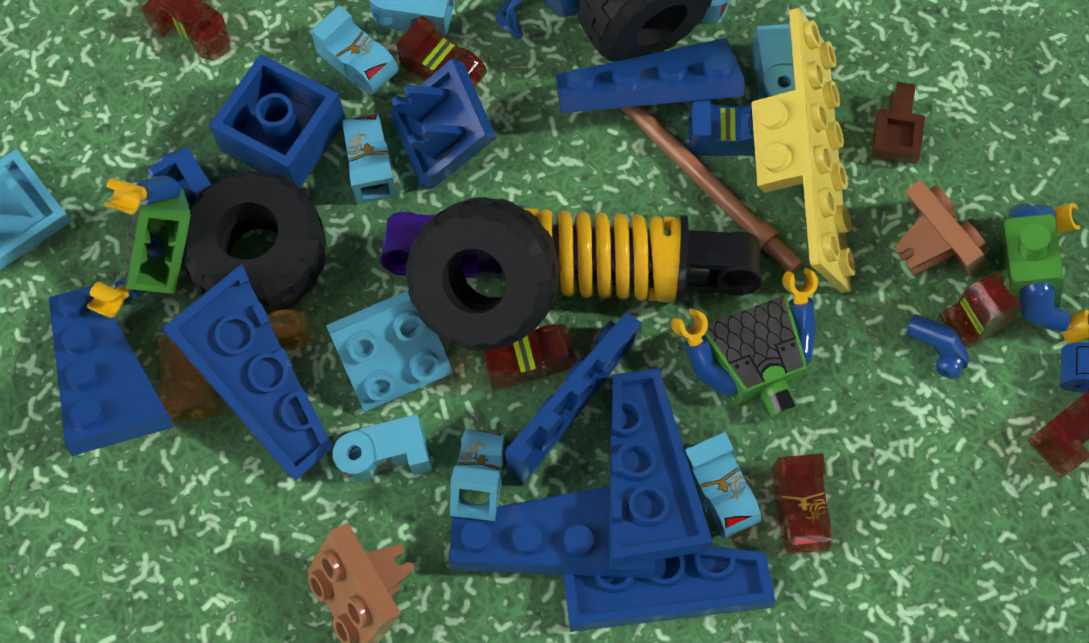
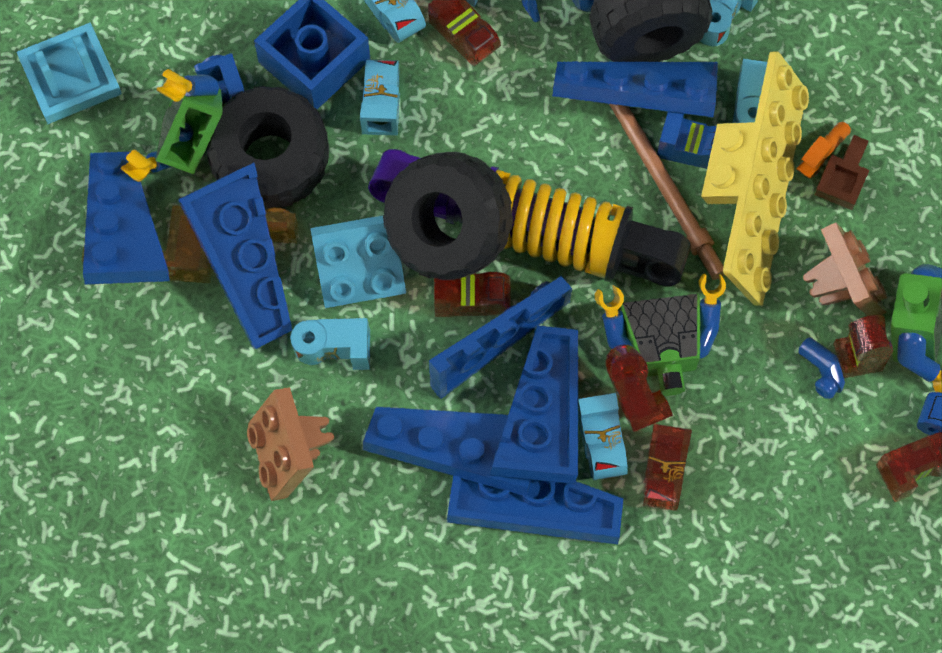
camera: 15 degrees right, 0 degrees up
(441, 123) = (449, 82): blue plate -> none
(478, 470) = (405, 374): medium azure leg -> none
(738, 413) = (628, 376): none -> clear red leg
(868, 105) = (822, 149): none -> orange bar

